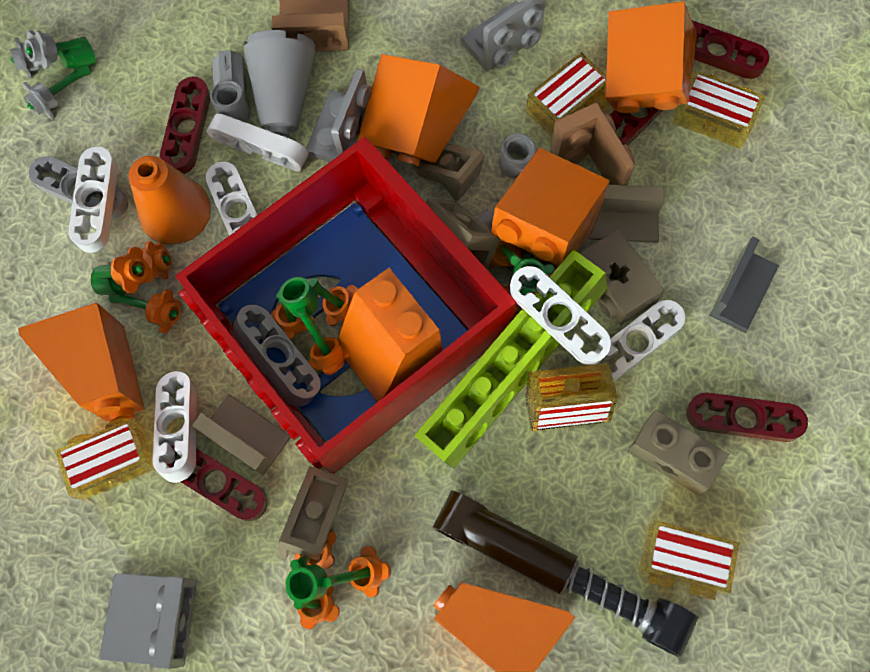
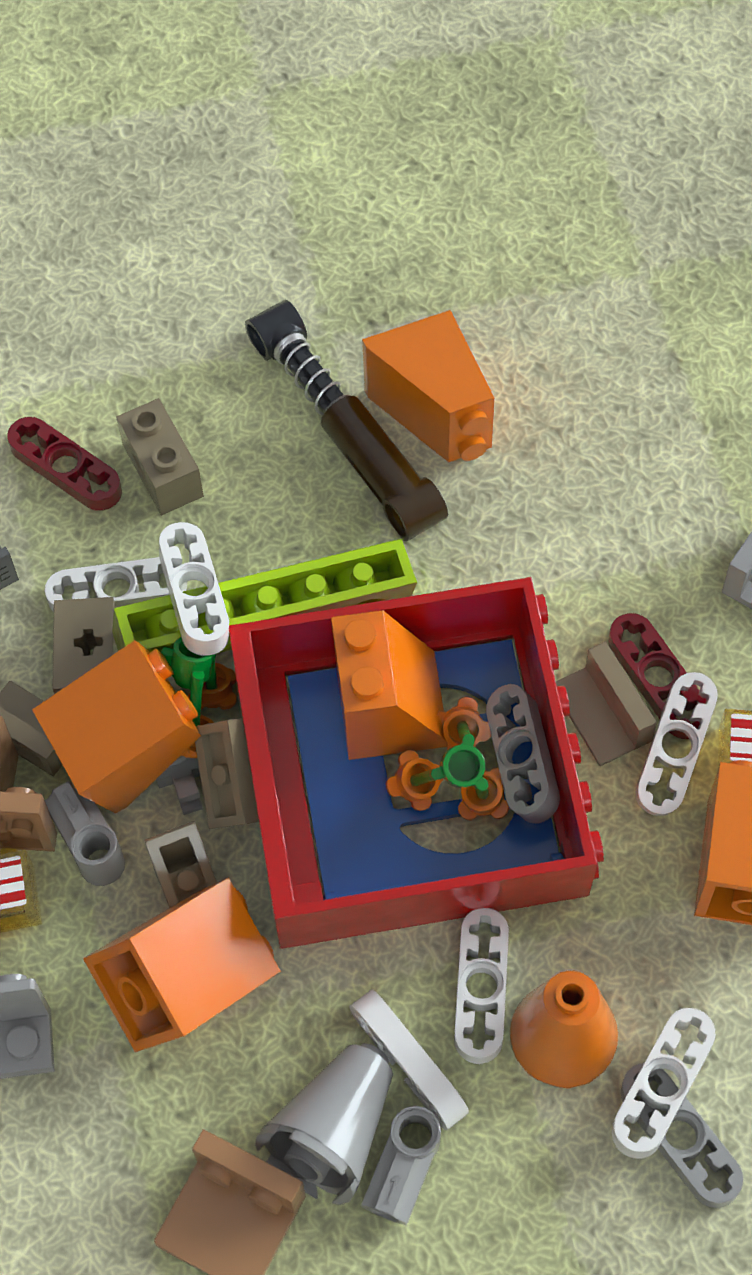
camera: 155 degrees left, 10 degrees down
(131, 271) = (650, 919): orange plant -> none
(179, 112) = (456, 1174): dark red beam -> none
(312, 514) = (571, 566): dark tan panel -> none
(313, 588) = (602, 505): plant -> none
(340, 120) = (283, 1017): light grey bracket -> none
(570, 396) = (234, 548): clear yellow brick -> none
(688, 559) = (218, 371): brick -> none

